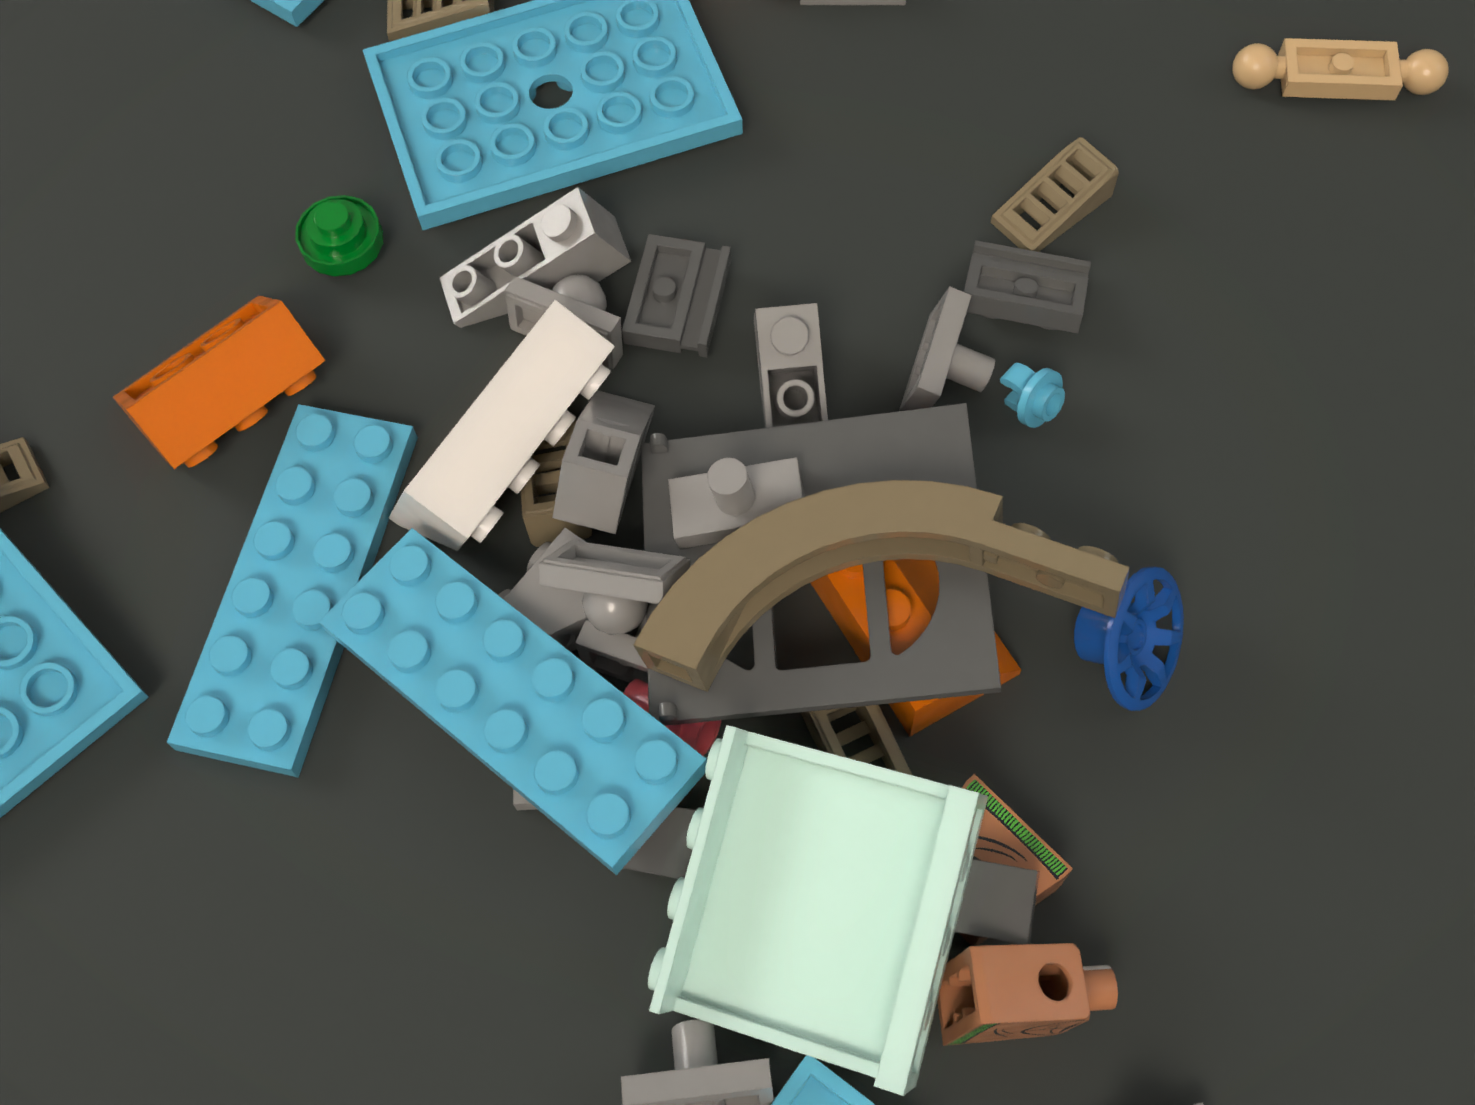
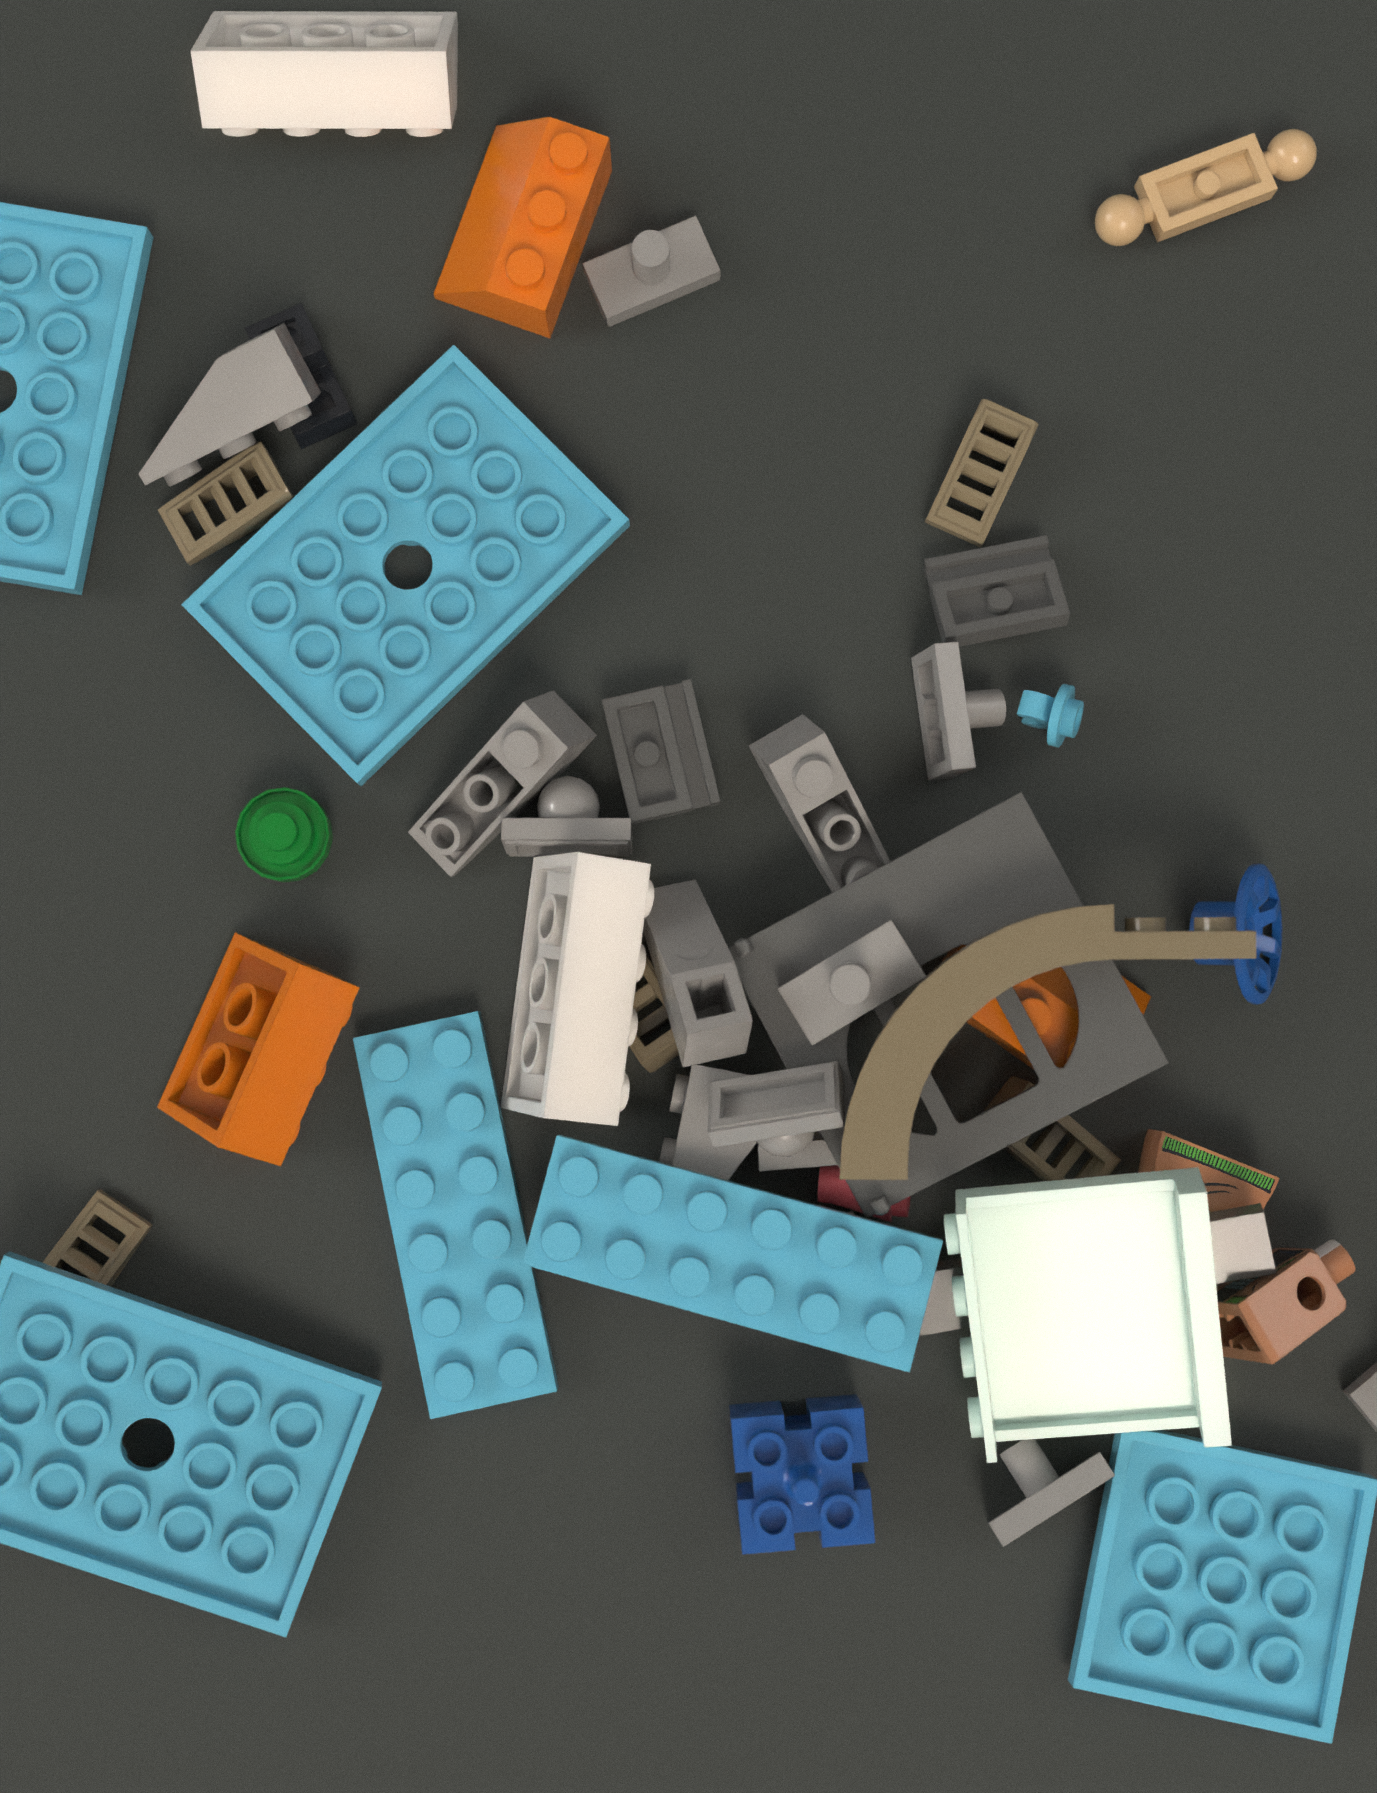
camera: 30 degrees left, 20 degrees up
(466, 946) = (801, 1474): none -> blue brick

